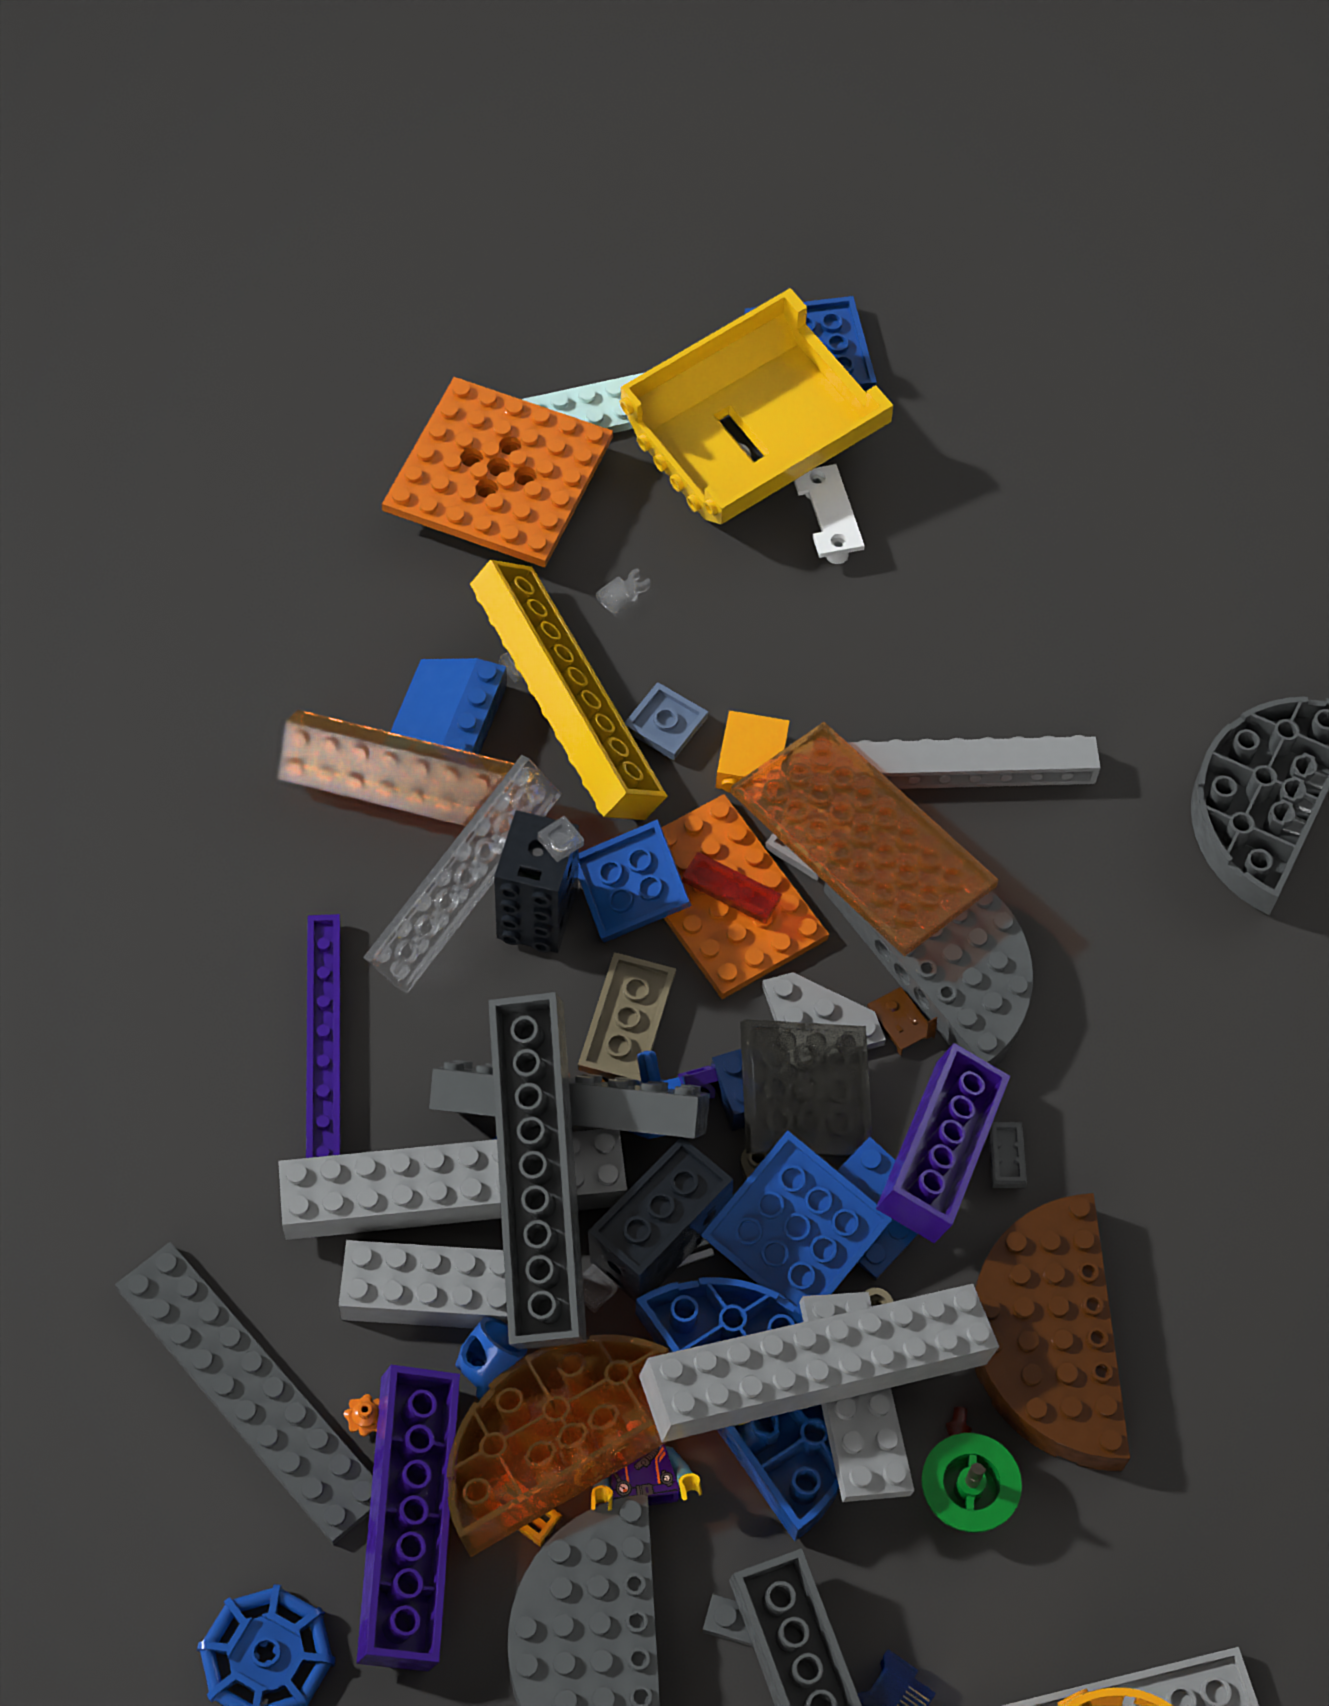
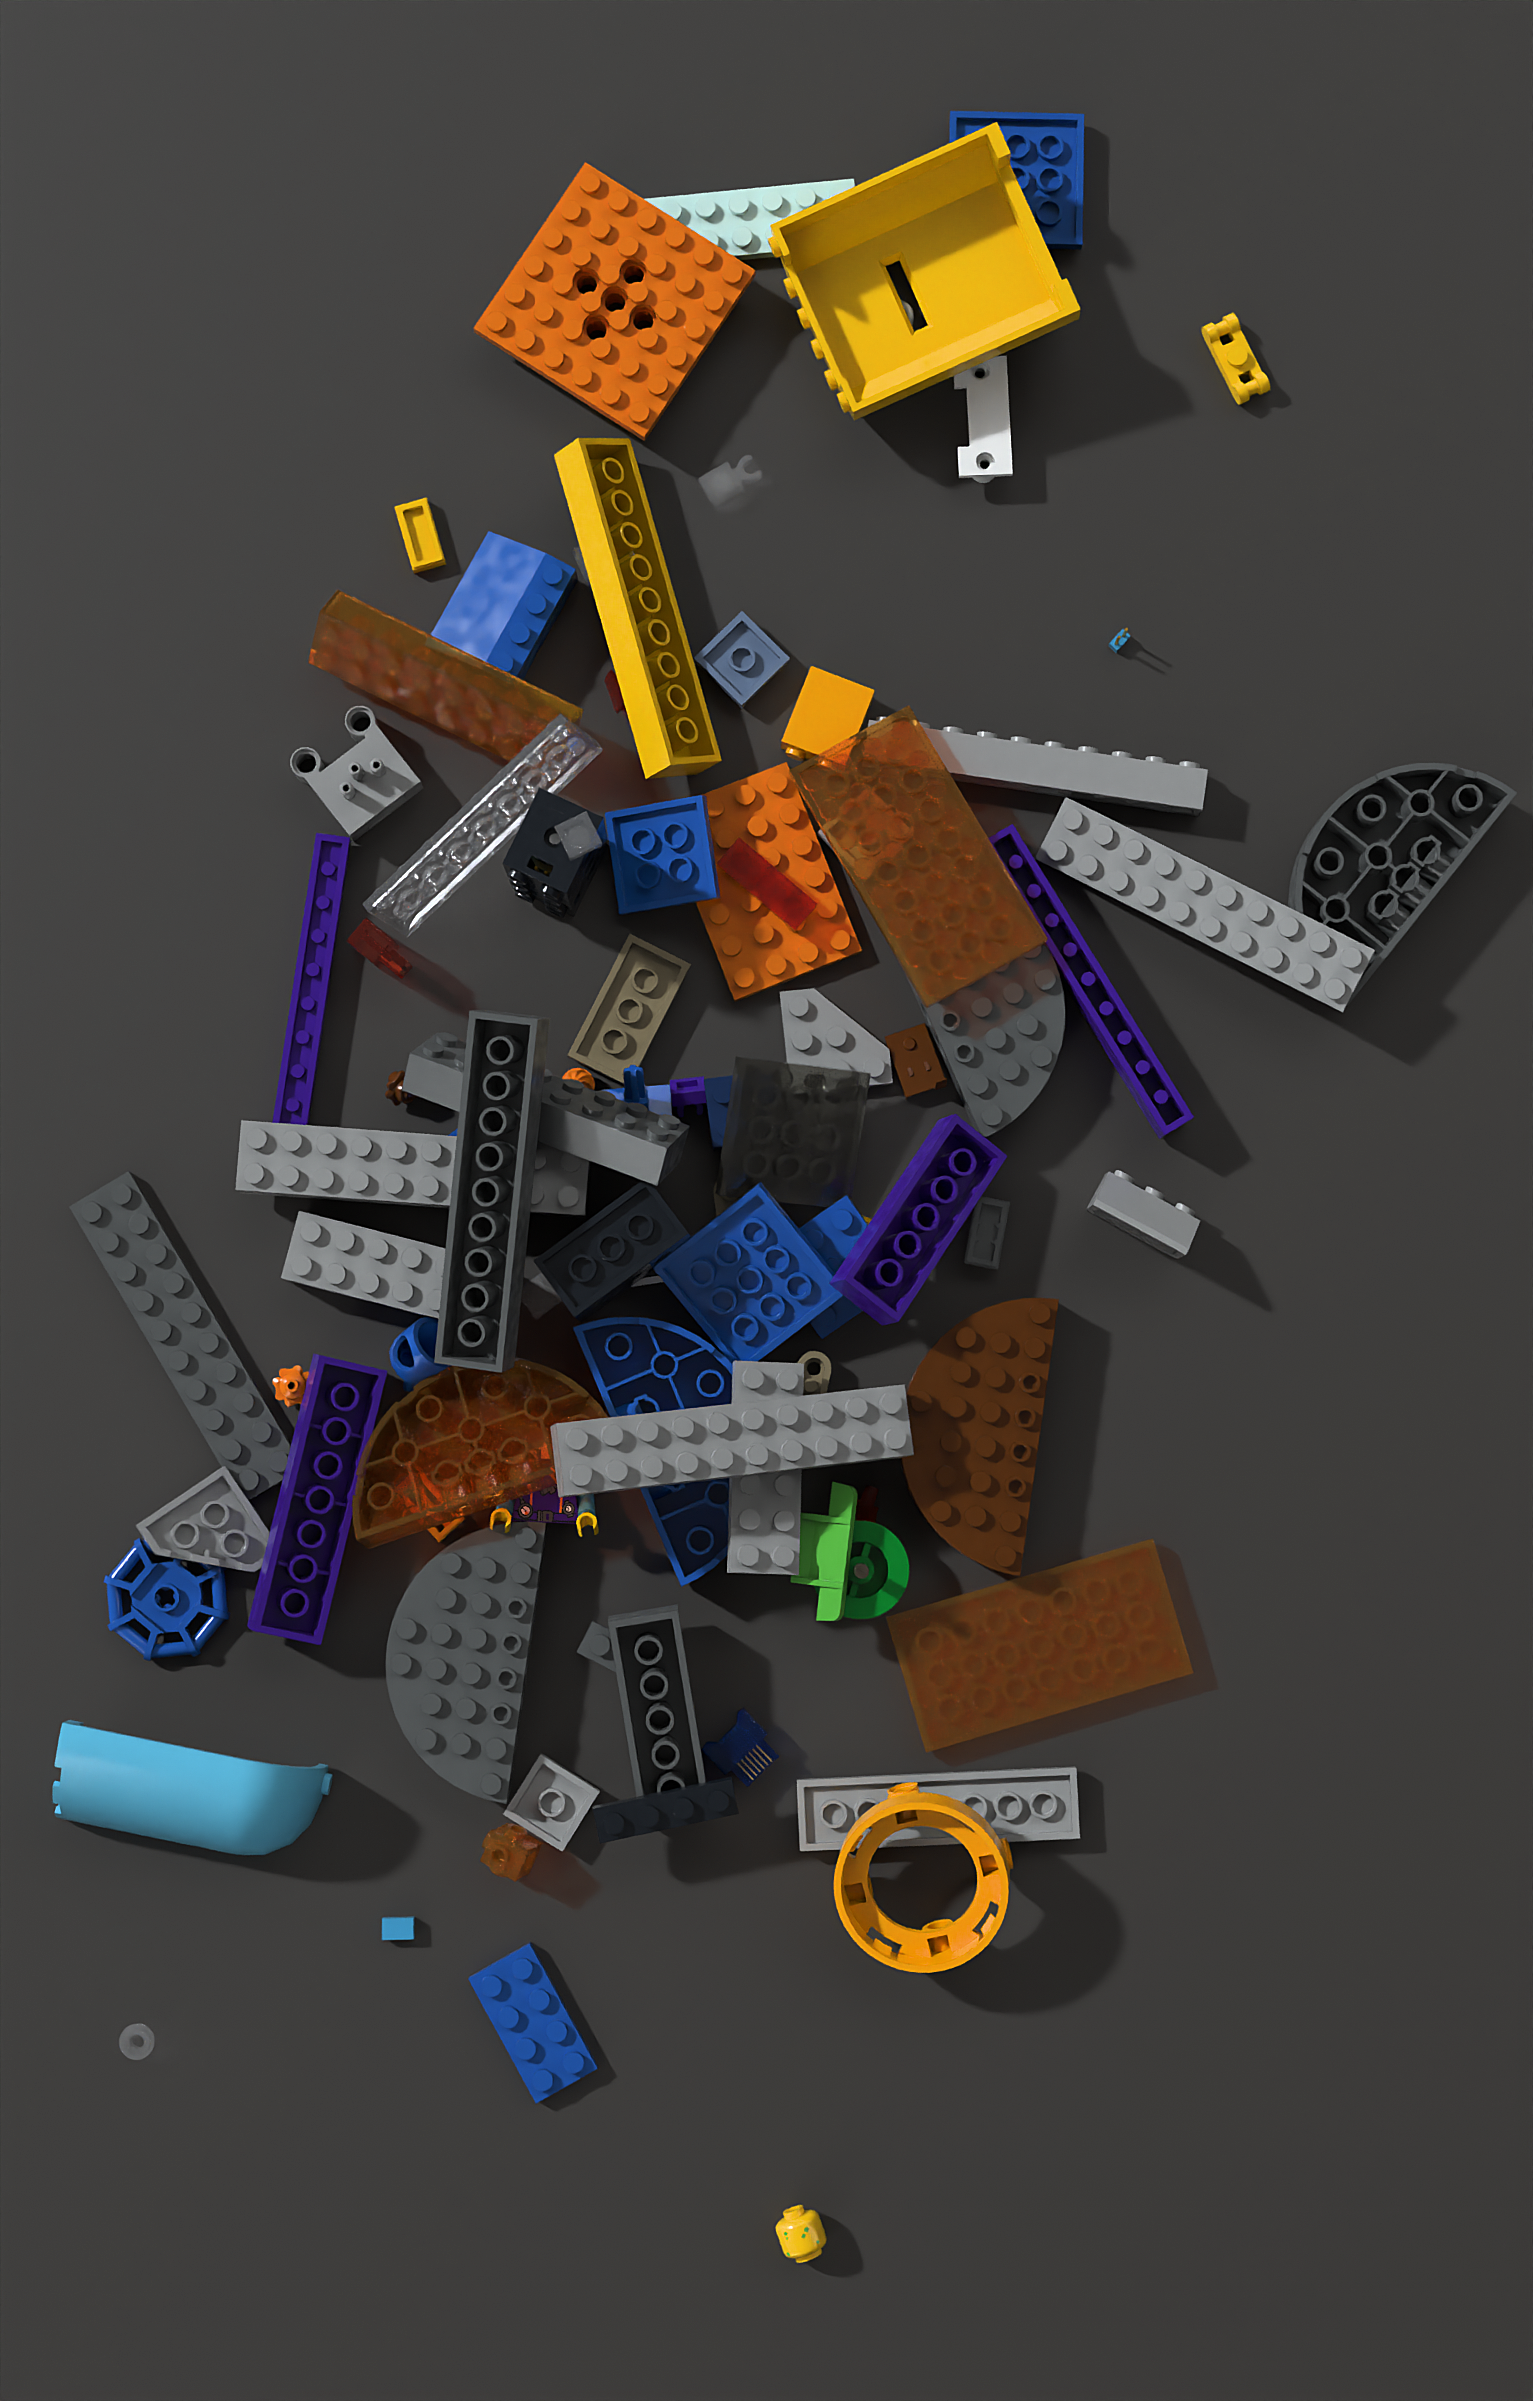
camera: 10 degrees right, 25 degrees up
(301, 1567) = (209, 1526): none -> light grey plate
(344, 868) = (364, 781): none -> light grey piece
(361, 671) = (420, 535): none -> yellow tile
(383, 1000) = (378, 948): none -> clear red piece
(426, 1121) = (395, 1089): none -> reddish brown plant
(563, 766) = (614, 691): none -> clear red bar
(936, 1468) = (827, 1551): none -> bright green plate
(989, 658) = (1119, 640): none -> dark azure piece
(1023, 445) = (1235, 359): none -> yellow plate
(1063, 942) = (1093, 991): none -> dark purple brick
(1127, 841) = (1205, 904): none -> light grey plate
(1148, 1112) = (1144, 1214): none -> light grey slope
(1164, 1533) = (1039, 1645): none -> clear orange plate

